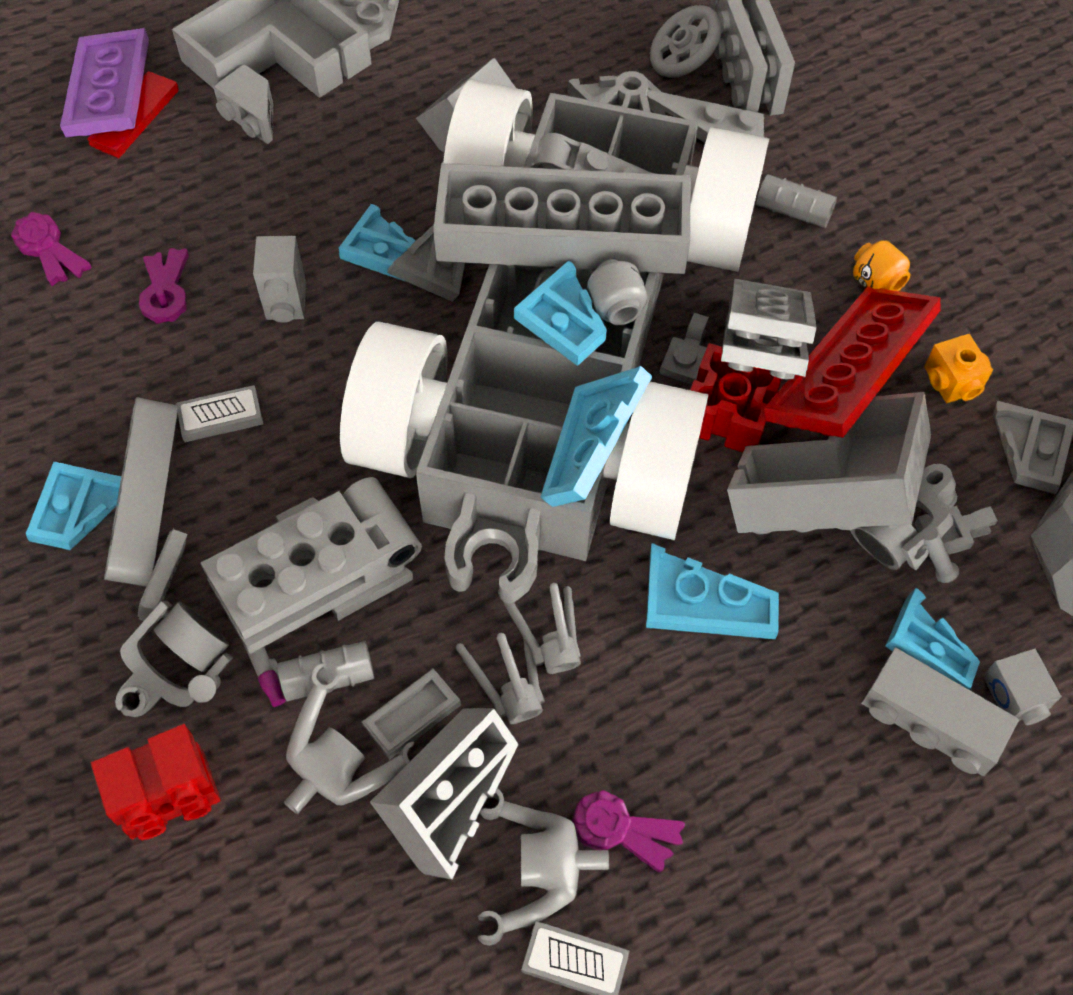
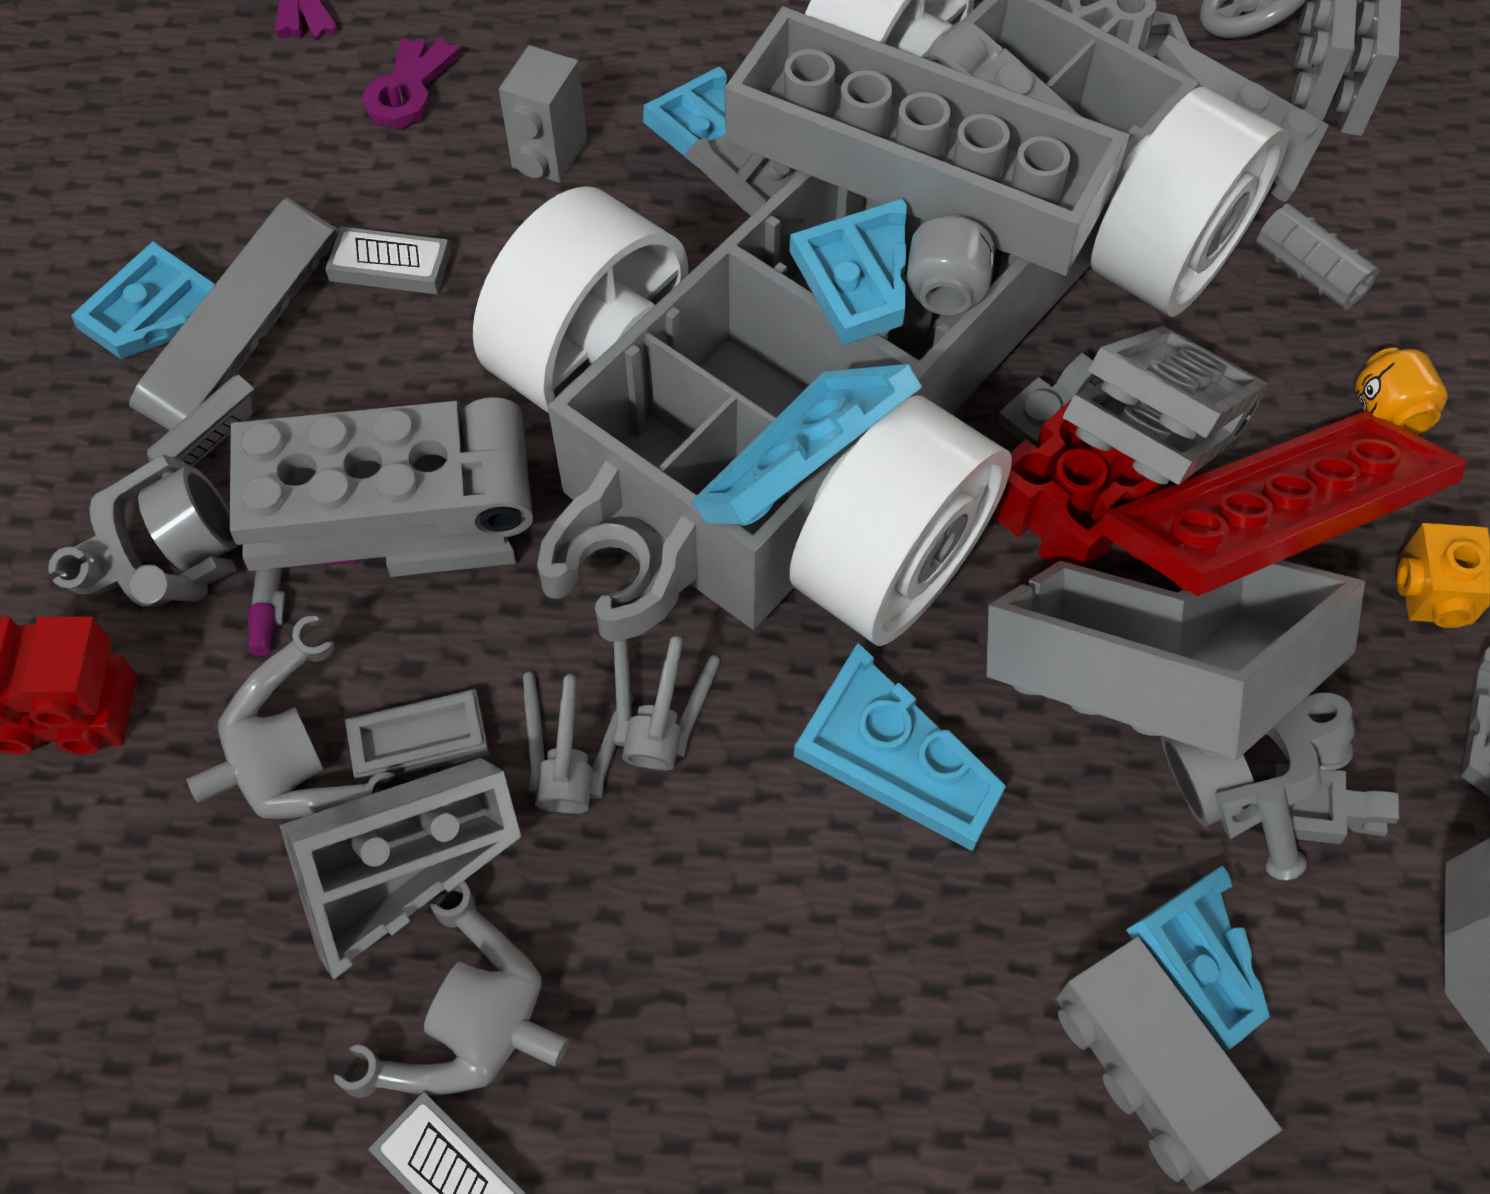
camera: 25 degrees right, 0 degrees up
(348, 662) = (358, 635): light grey axle -> none
(604, 823) = (591, 1001): magenta piece -> none
(1022, 686) = (1317, 1085): light grey brick -> none

